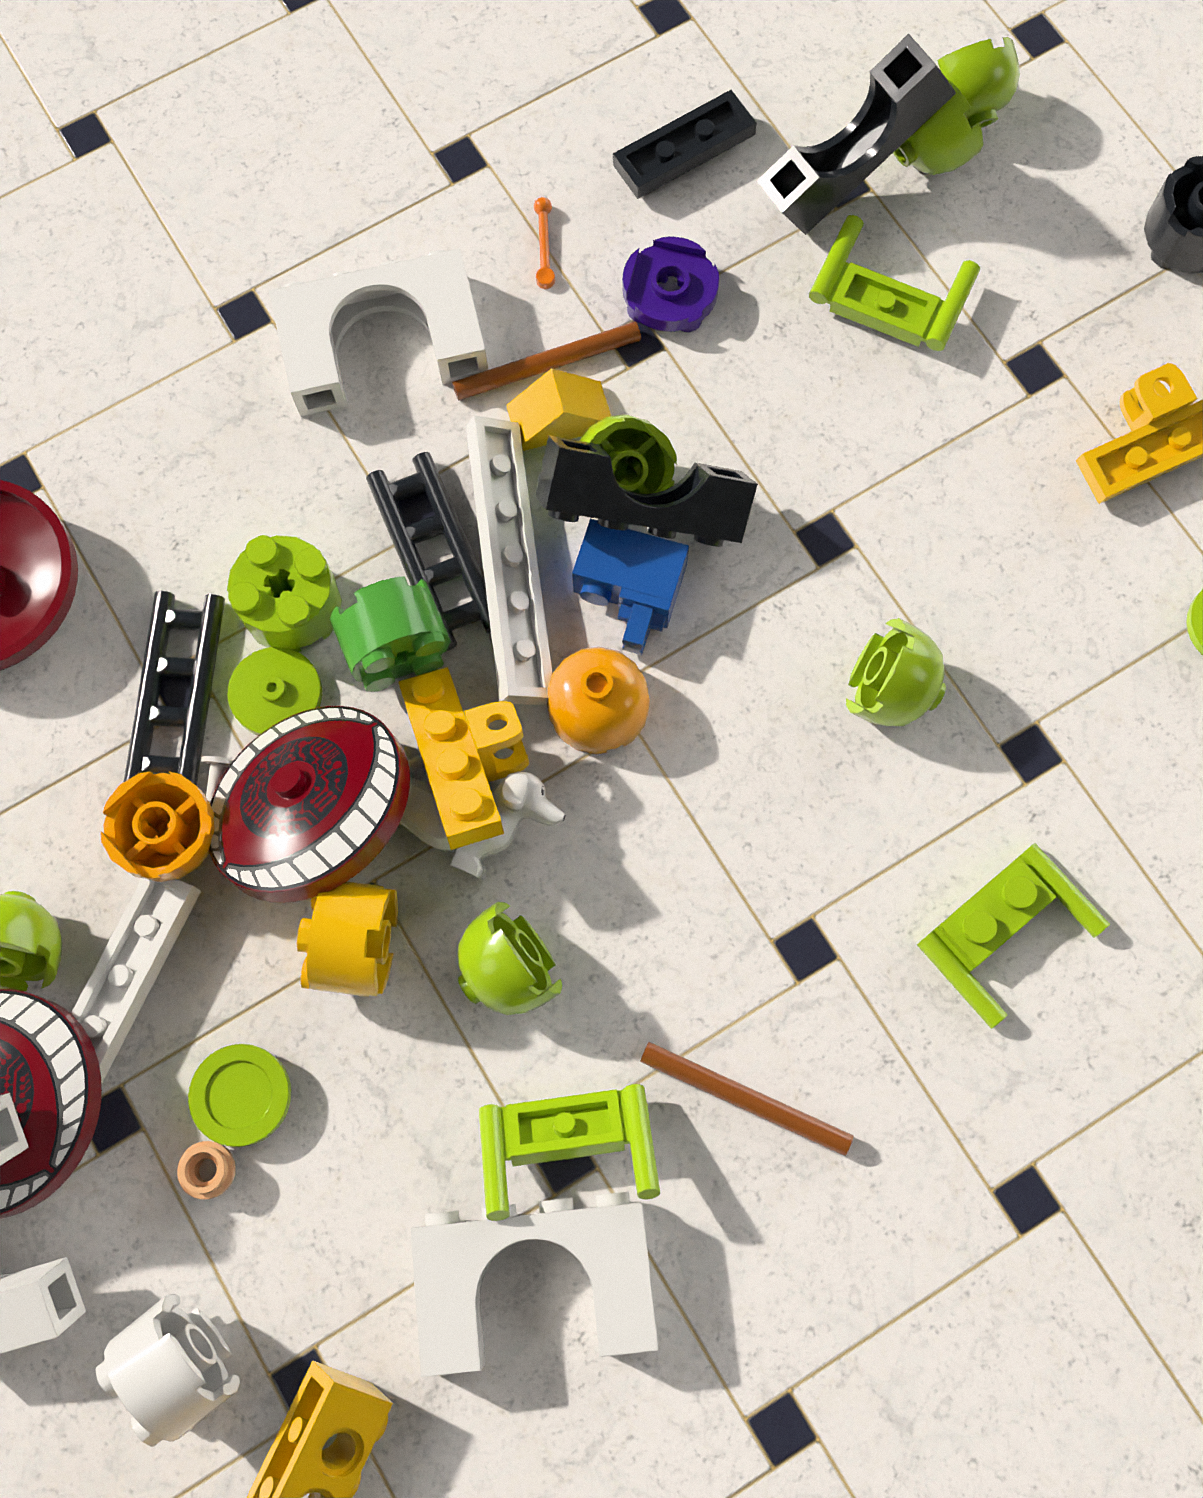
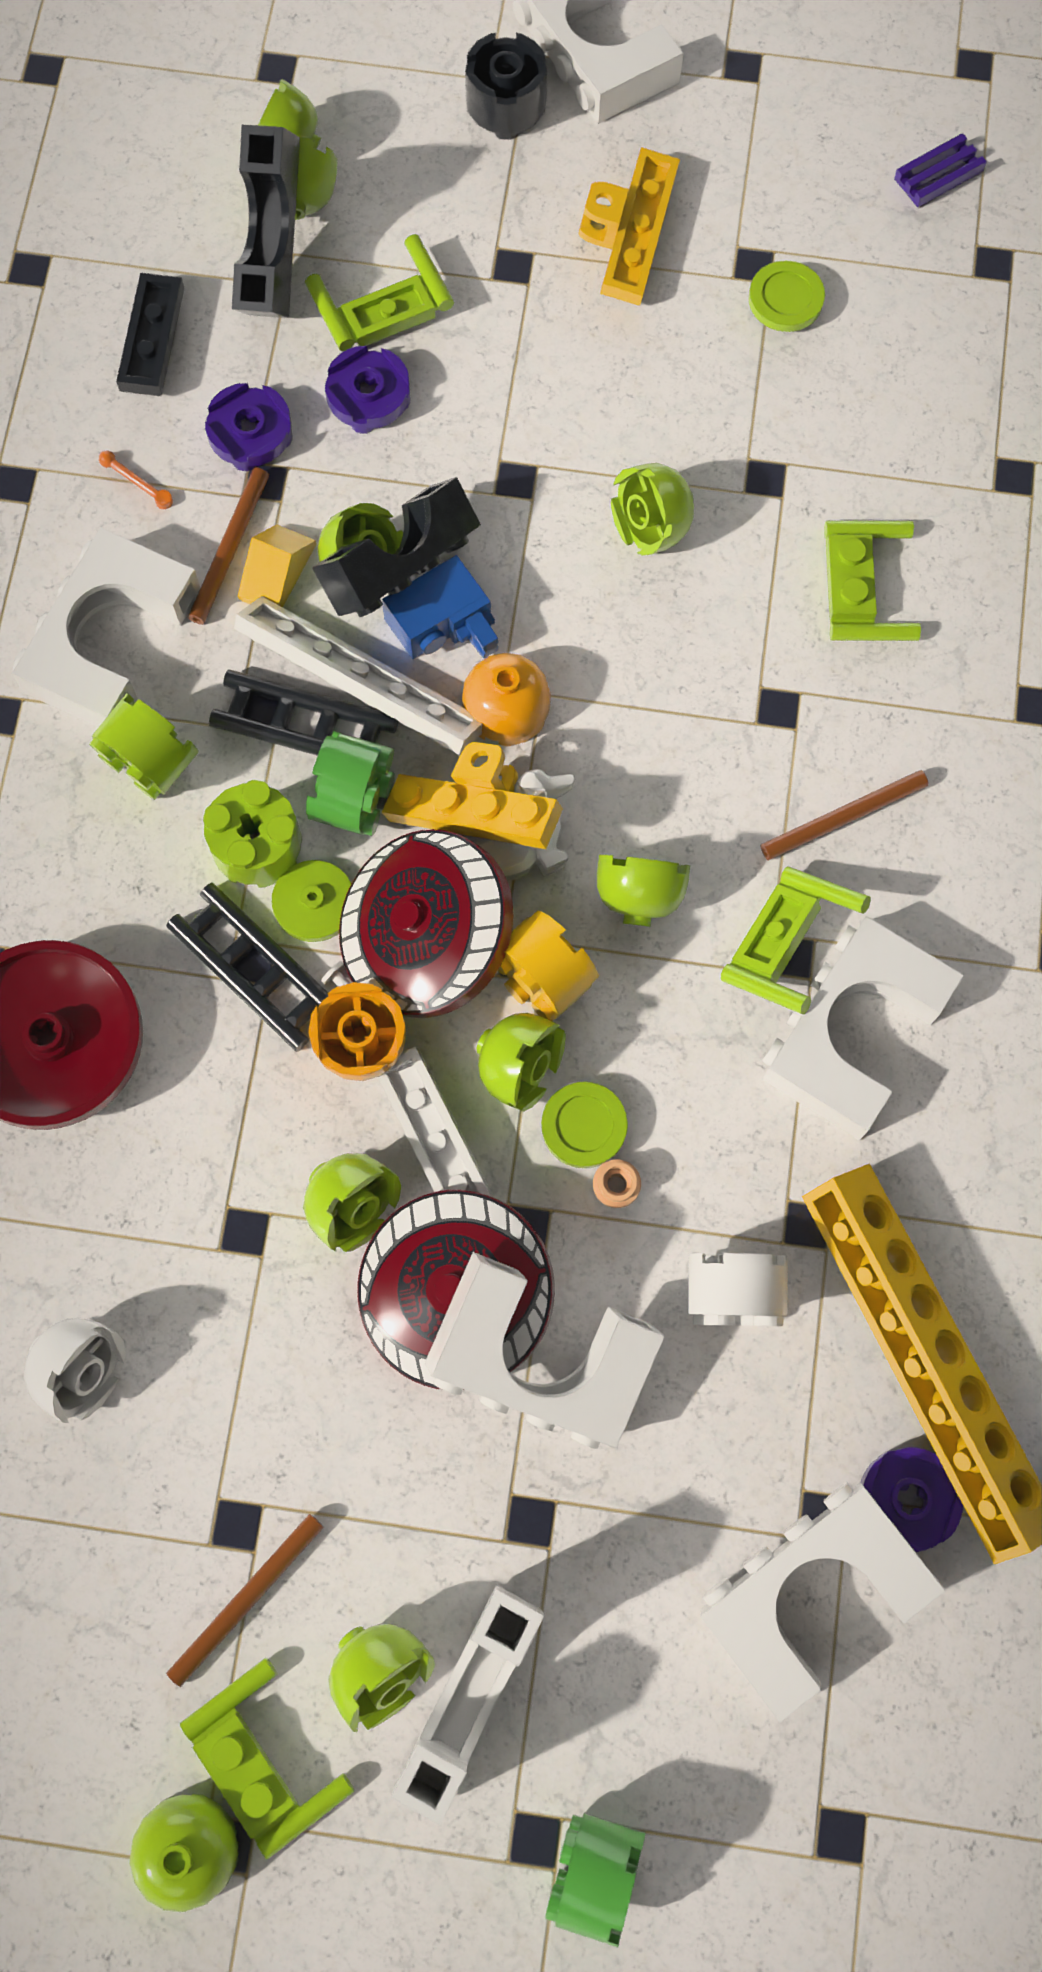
camera: 55 degrees left, 0 degrees up
(248, 985) = (517, 1057): none -> lime cylinder
(287, 441) = (143, 744): none -> lime brick
(787, 372) = (367, 410): none -> dark purple plate

